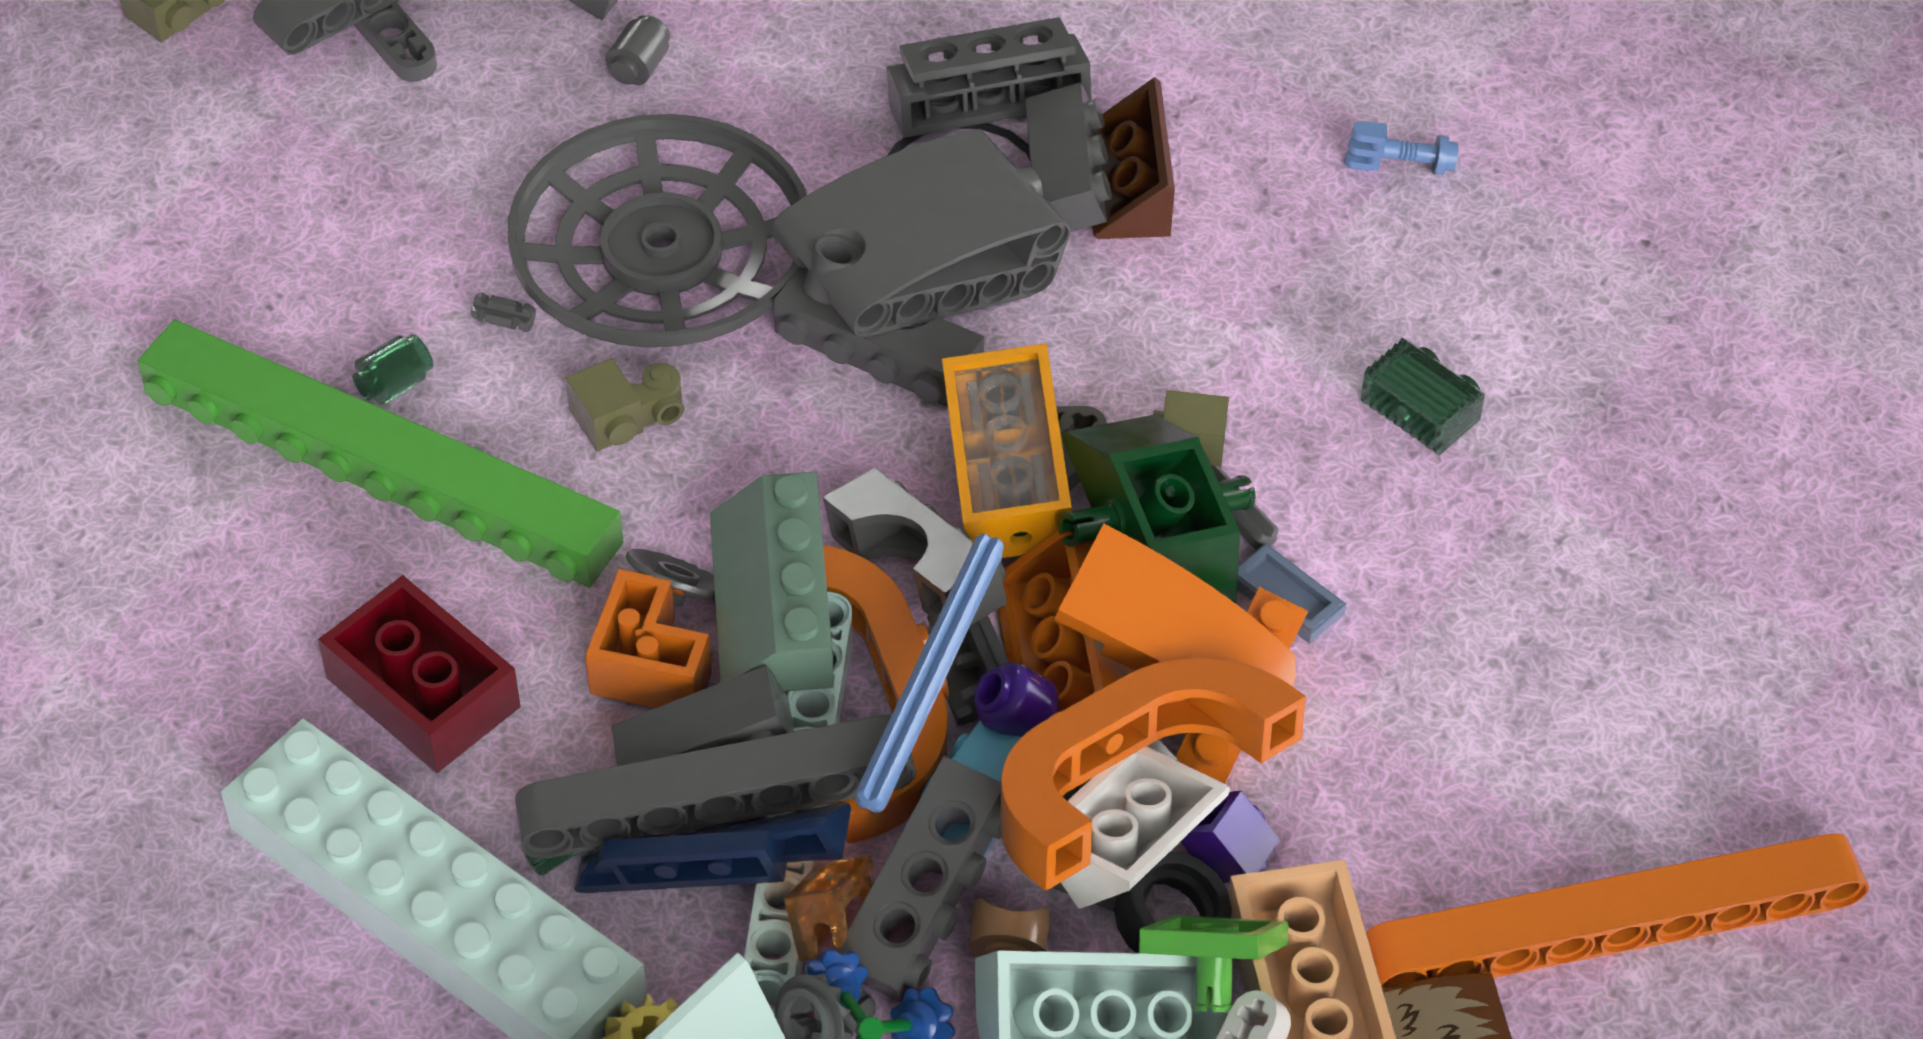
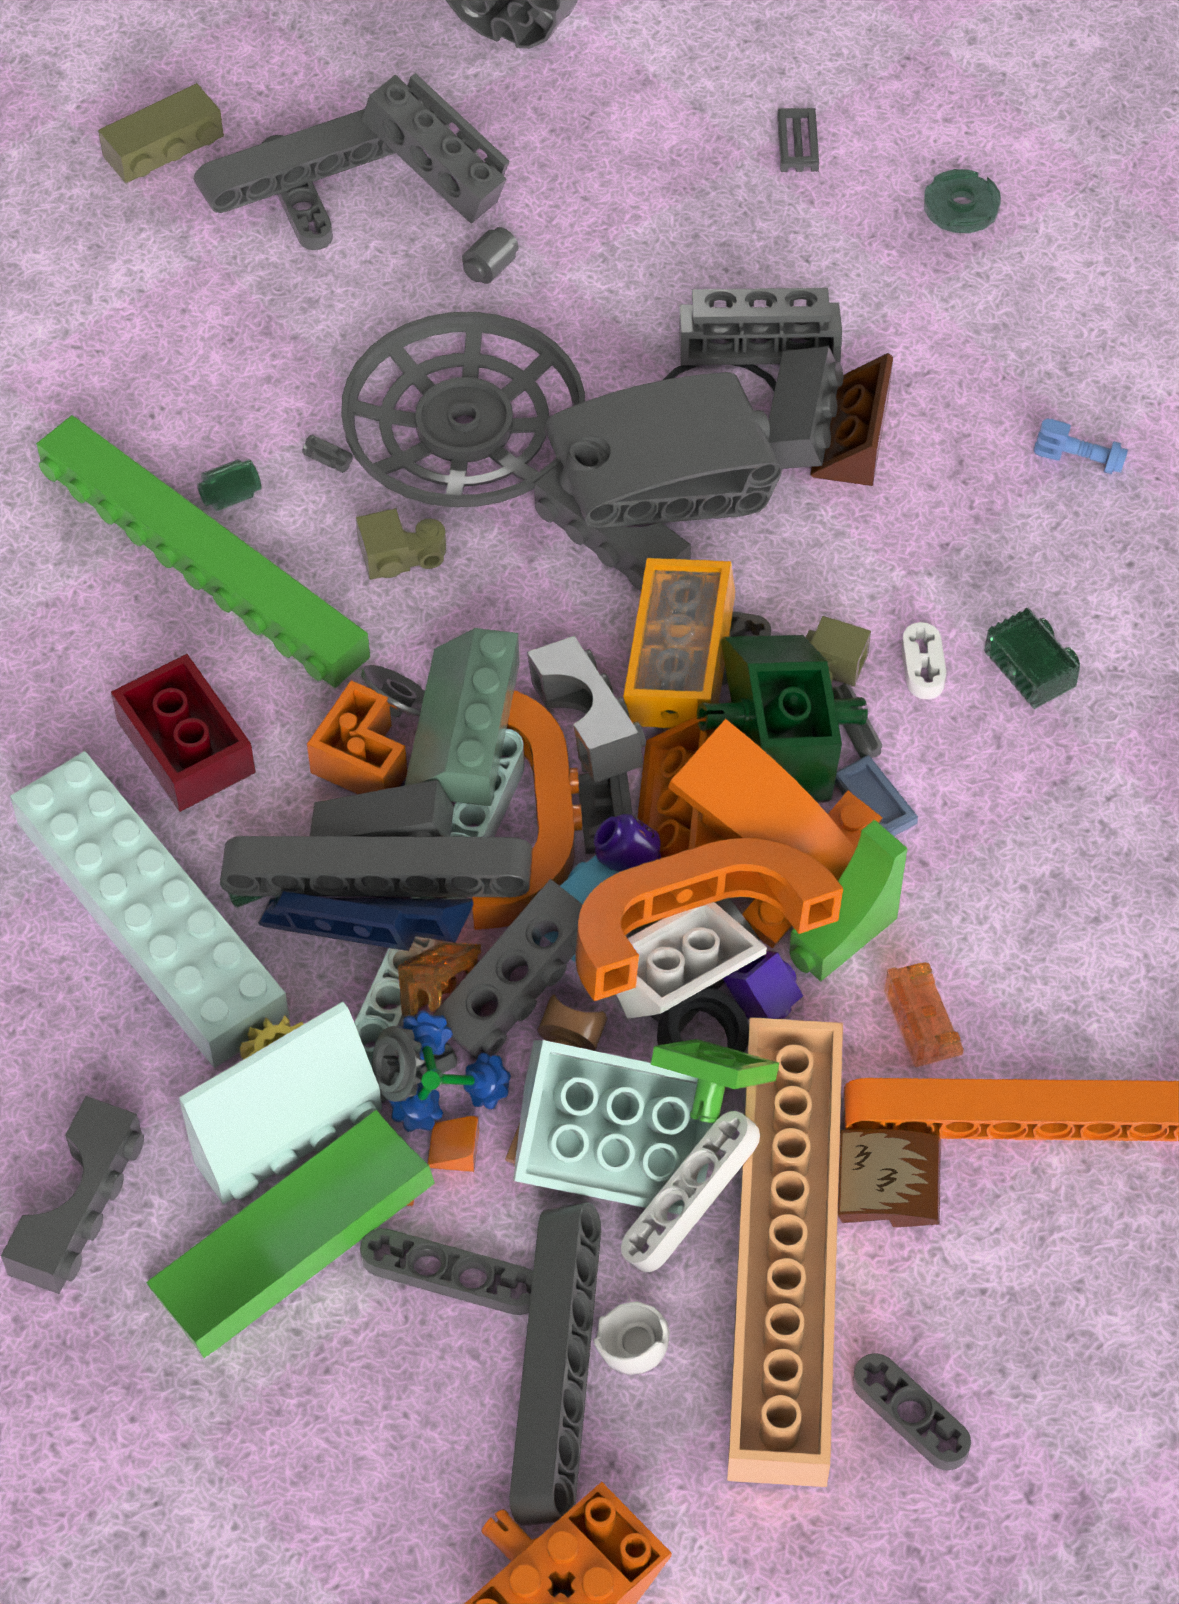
camera: 15 degrees right, 5 degrees up
(929, 674) = (557, 811): medium blue axle -> none
(1286, 425) = (932, 659): none -> white beam
(1333, 683) = (867, 905): none -> bright green arch
(1423, 835) = (921, 1014): none -> clear orange hinge

